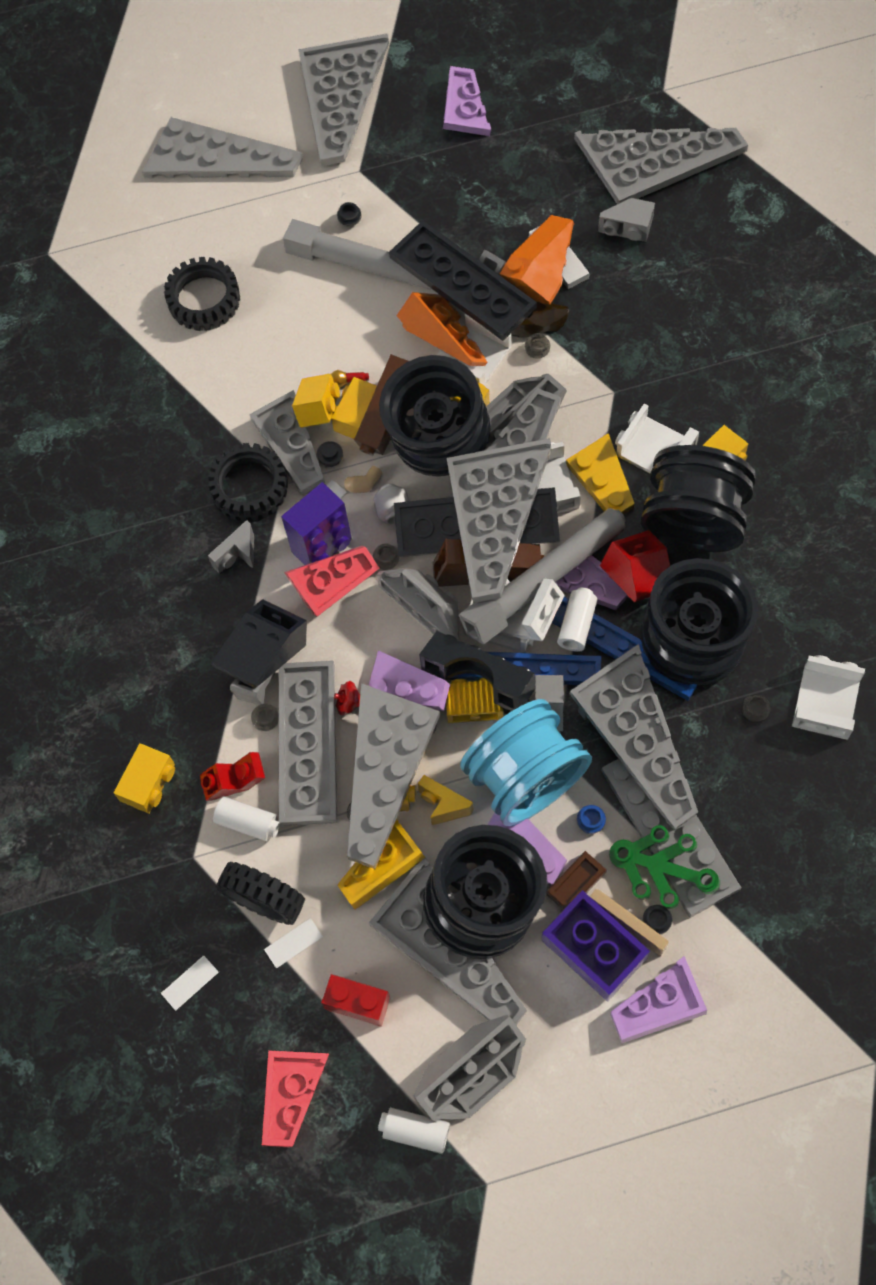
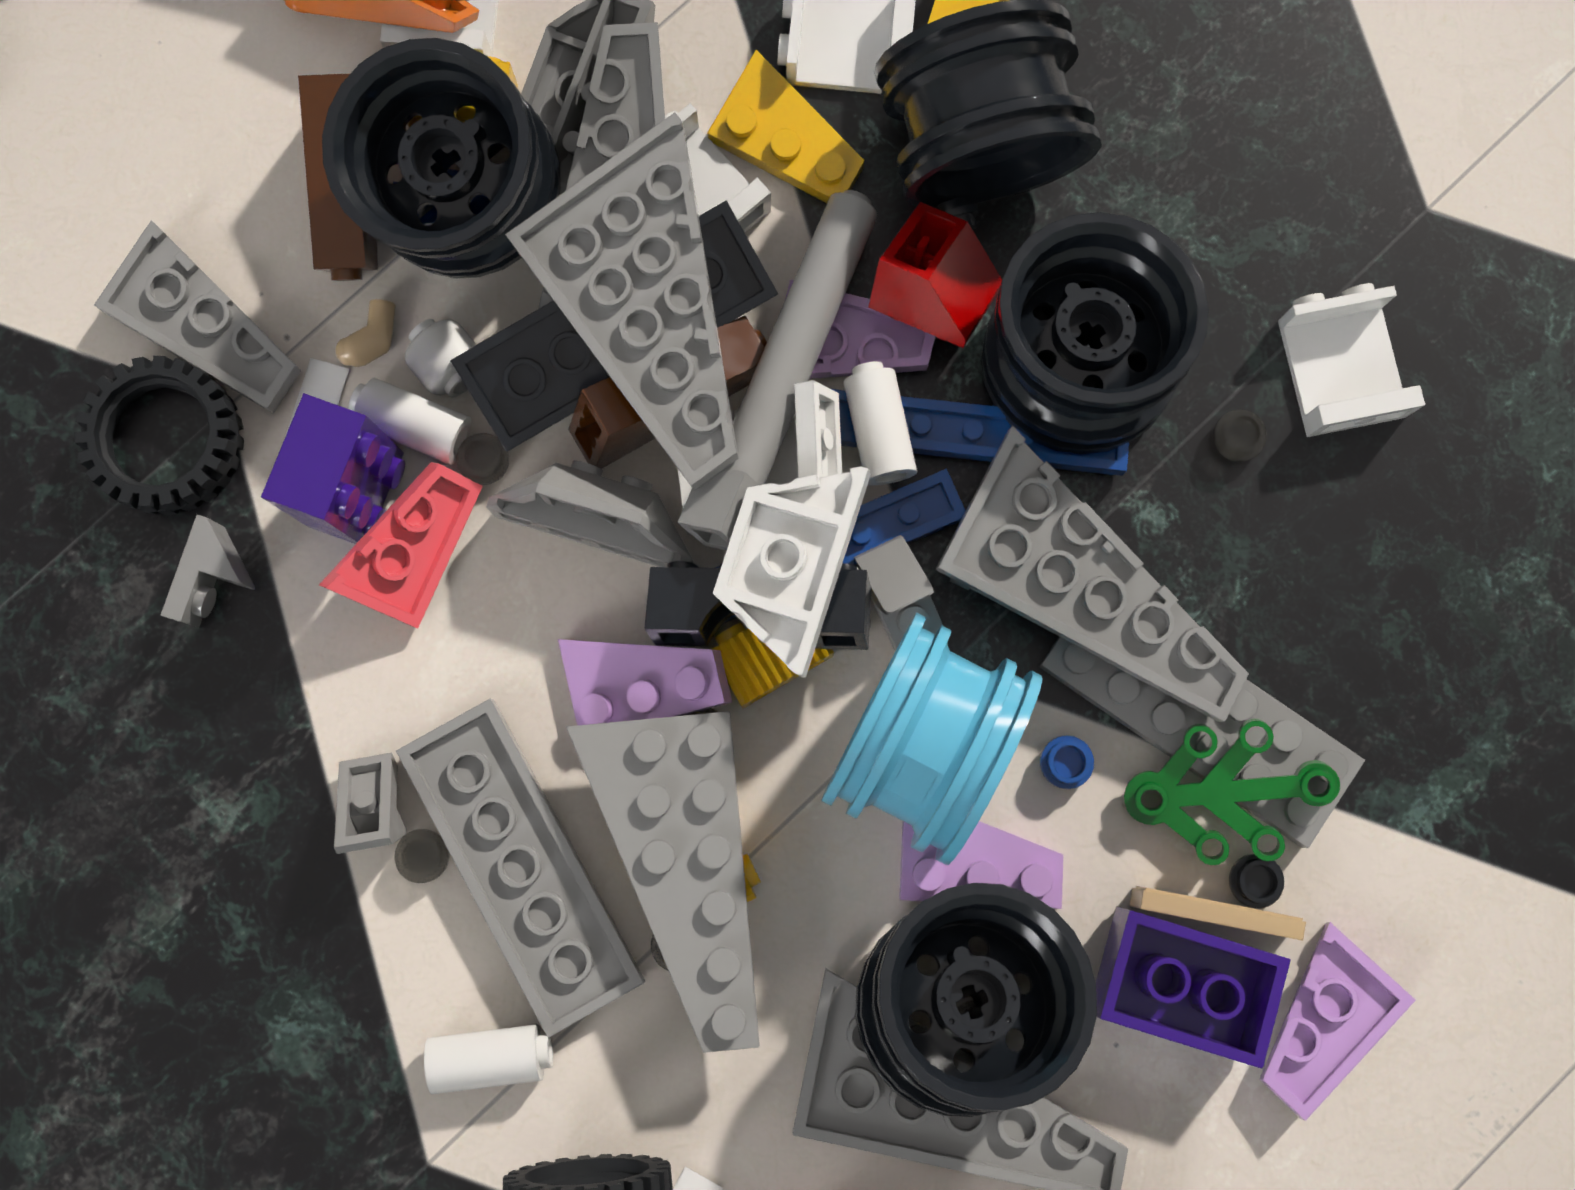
camera: 35 degrees left, 15 degrees up
(145, 778) = (268, 1077): yellow brick -> none
(232, 778) = (421, 993): red slope -> none
(261, 643) = (347, 739): black slope -> none
(315, 400) = (203, 225): yellow brick -> none
(330, 453) = (281, 311): black plate -> none
(342, 378) = (226, 158): piece -> none
(347, 698) = (550, 754): red piece -> none
(352, 407) = (278, 205): yellow brick -> none
(364, 525) = (412, 419): none -> white brick
(396, 859) = (785, 998): yellow wing -> none
(450, 805) = (825, 856): yellow slope -> none
(500, 650) = (789, 559): none -> white wing
(579, 876) = (1095, 880): reddish brown tile -> none

